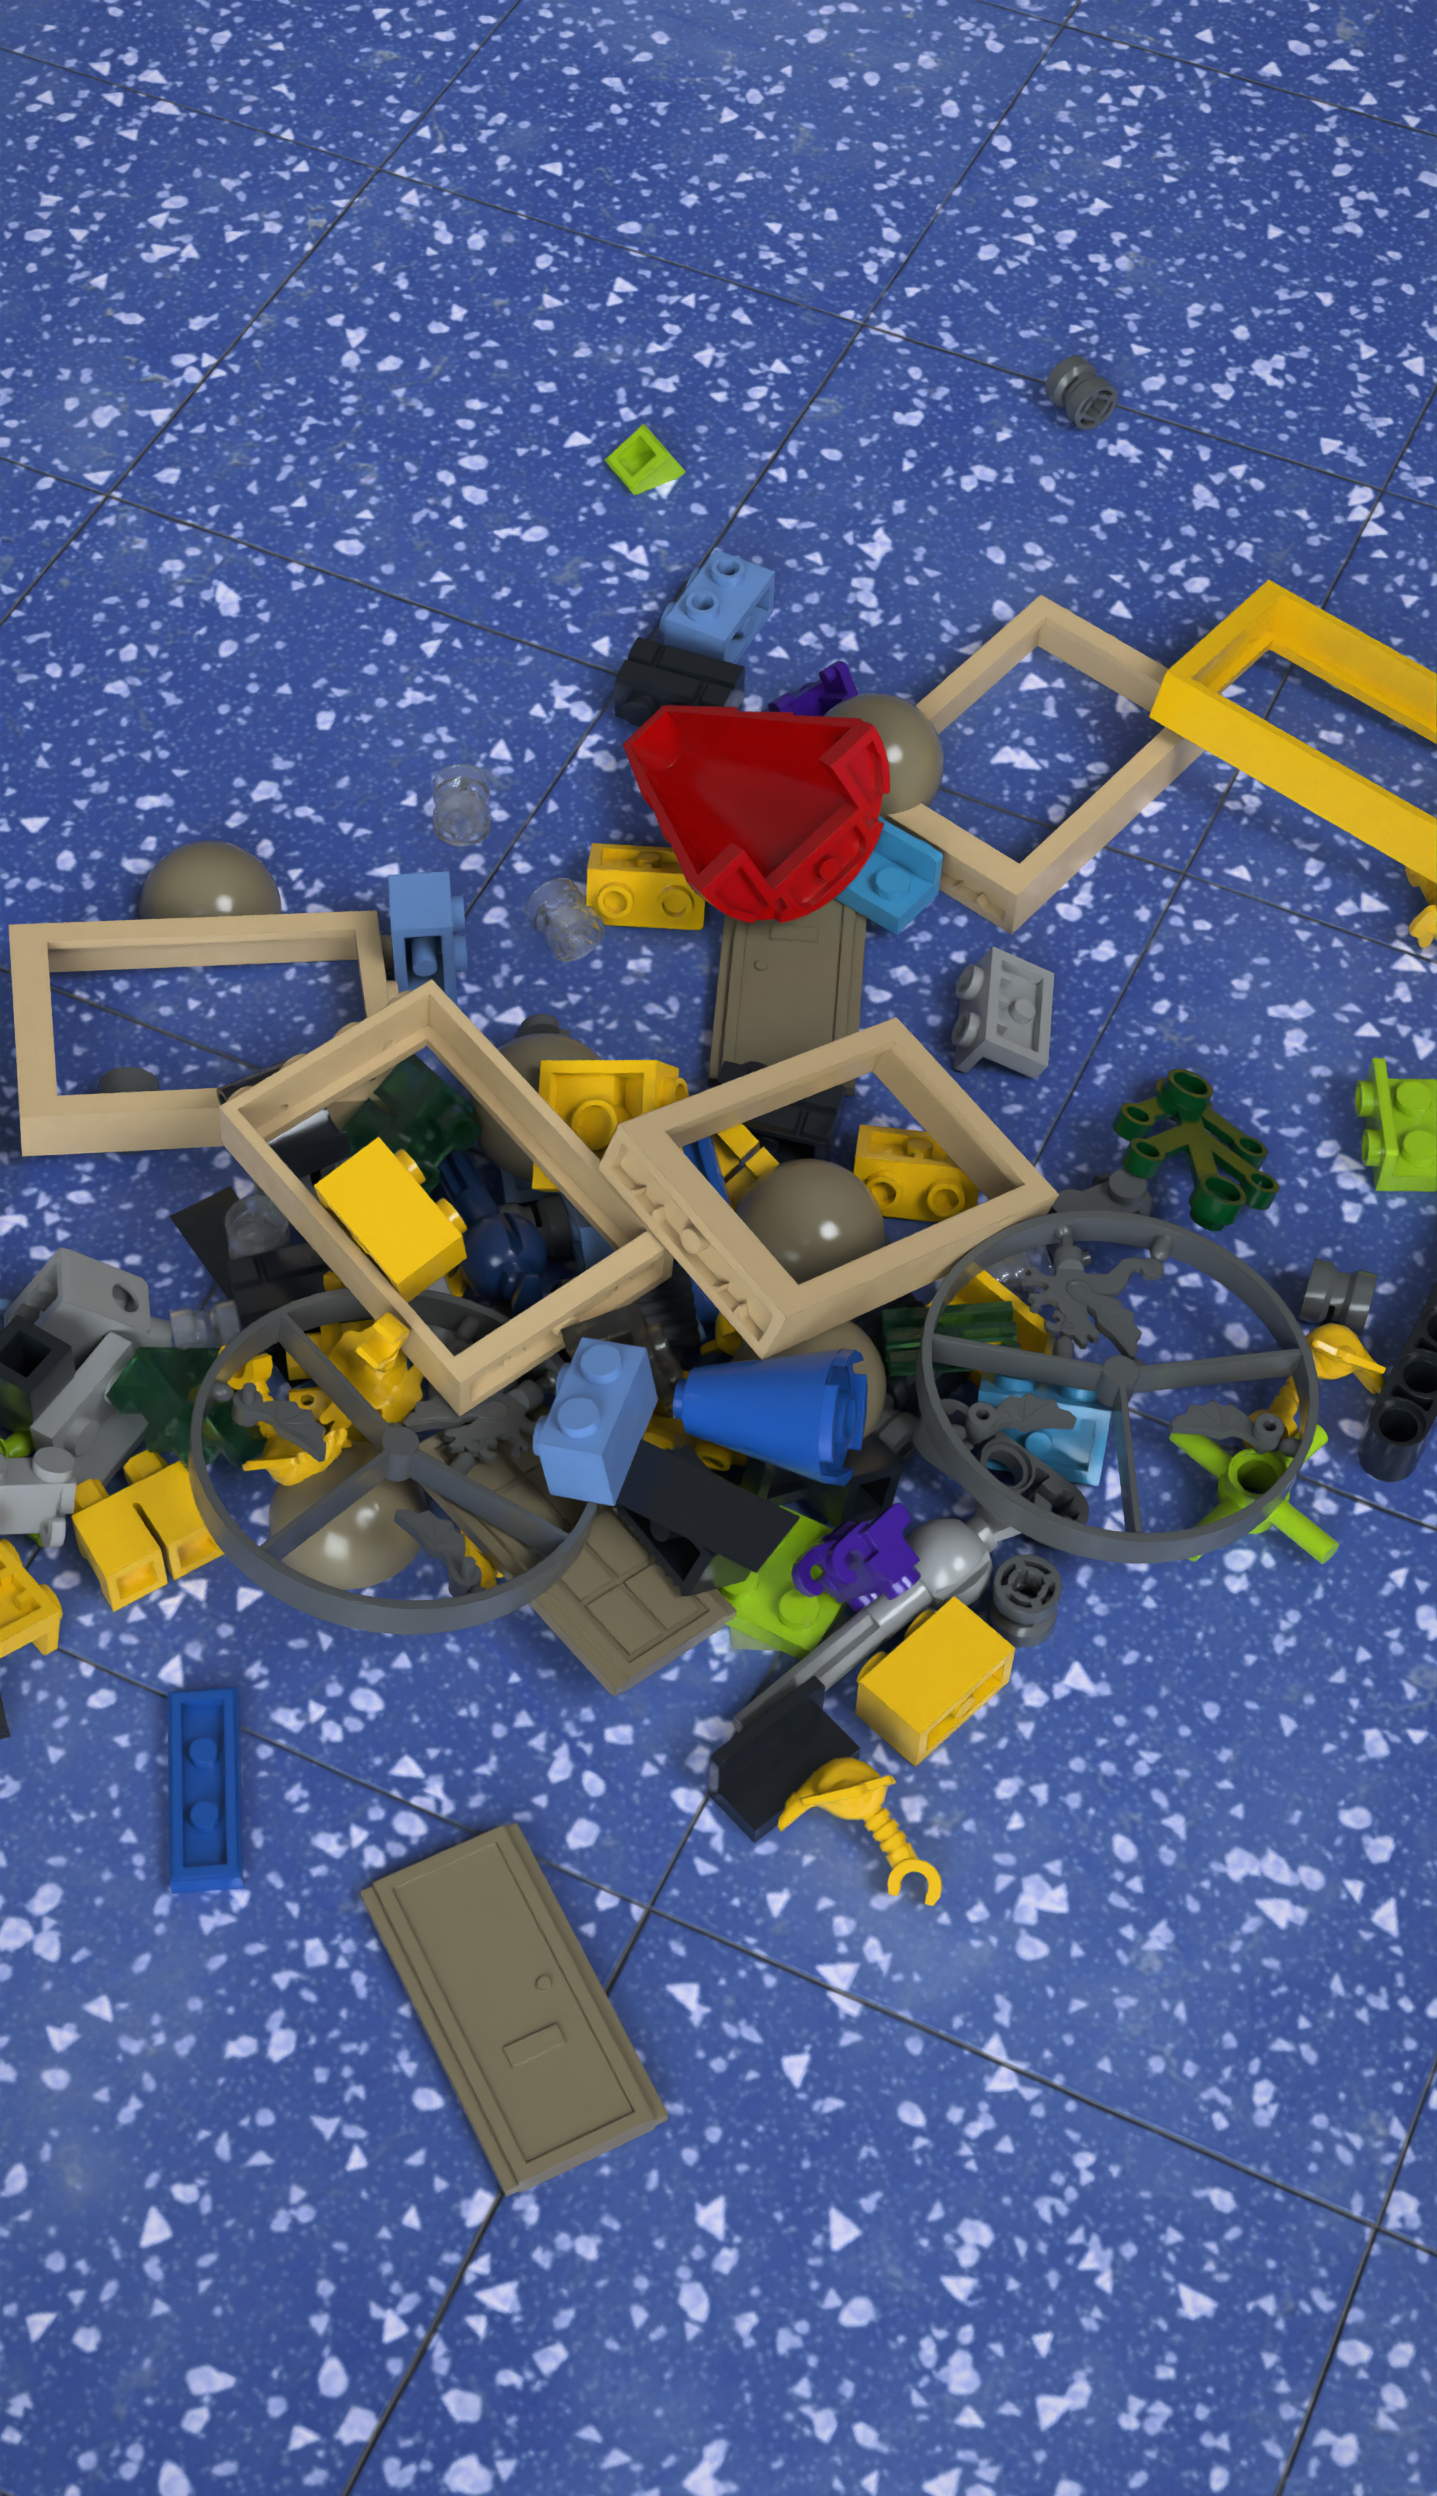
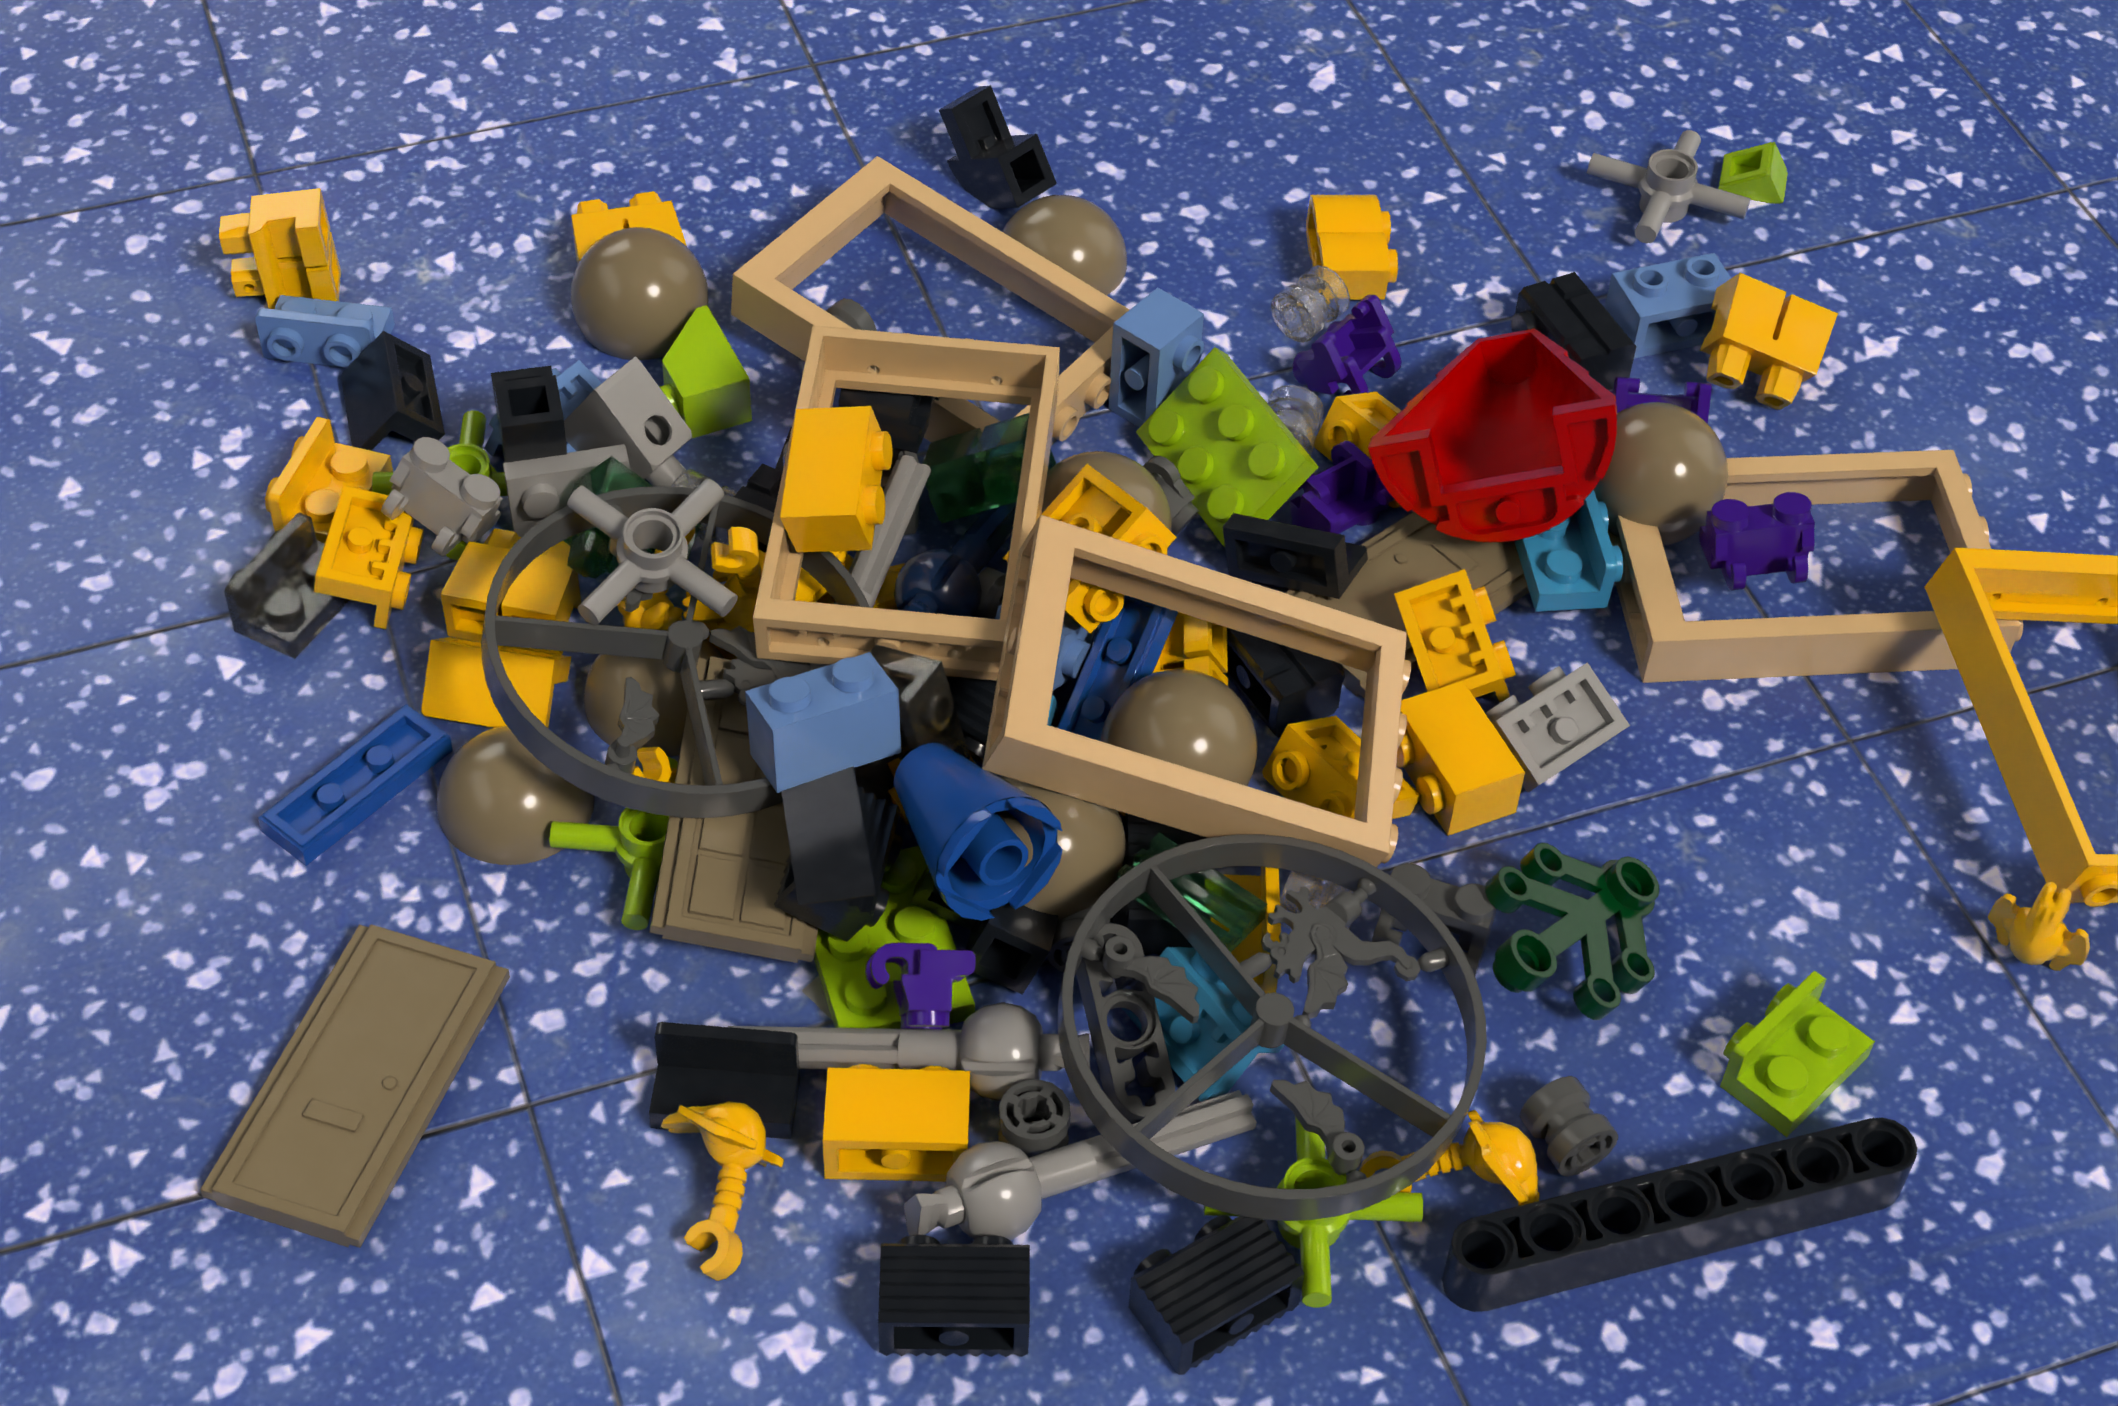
camera: 45 degrees right, 5 degrees down
(65, 1215) = (706, 377): none -> lime slope
(75, 863) = (989, 161): none -> black brick
(211, 1621) = (458, 688): none -> yellow panel
(310, 1415) = (649, 571): none -> light grey bar
(341, 1695) = (502, 801): none -> dark tan piece
(428, 731) = (1352, 240): none -> yellow brick
(500, 1656) = (638, 846): none -> lime bar
(539, 826) = (1350, 351): none -> dark purple piece
(555, 964) = (1227, 444): none -> lime plate
(605, 515) = (1668, 186): none -> light grey bar
(673, 947) = (1342, 494): none -> dark purple piece
(695, 1022) = (1291, 556): none -> black panel
(823, 592) = (1765, 335): none -> yellow hips
(868, 990) = (1451, 637): none -> yellow bracket
(997, 1080) = (1458, 759): none -> yellow brick
(1011, 762) = (1759, 538): none -> dark purple piece
(1060, 1661) = (1001, 1190): none -> light grey piece
(1115, 1762) = (954, 1297): none -> black brick
(1263, 1605) = (1214, 1289): none -> black brick

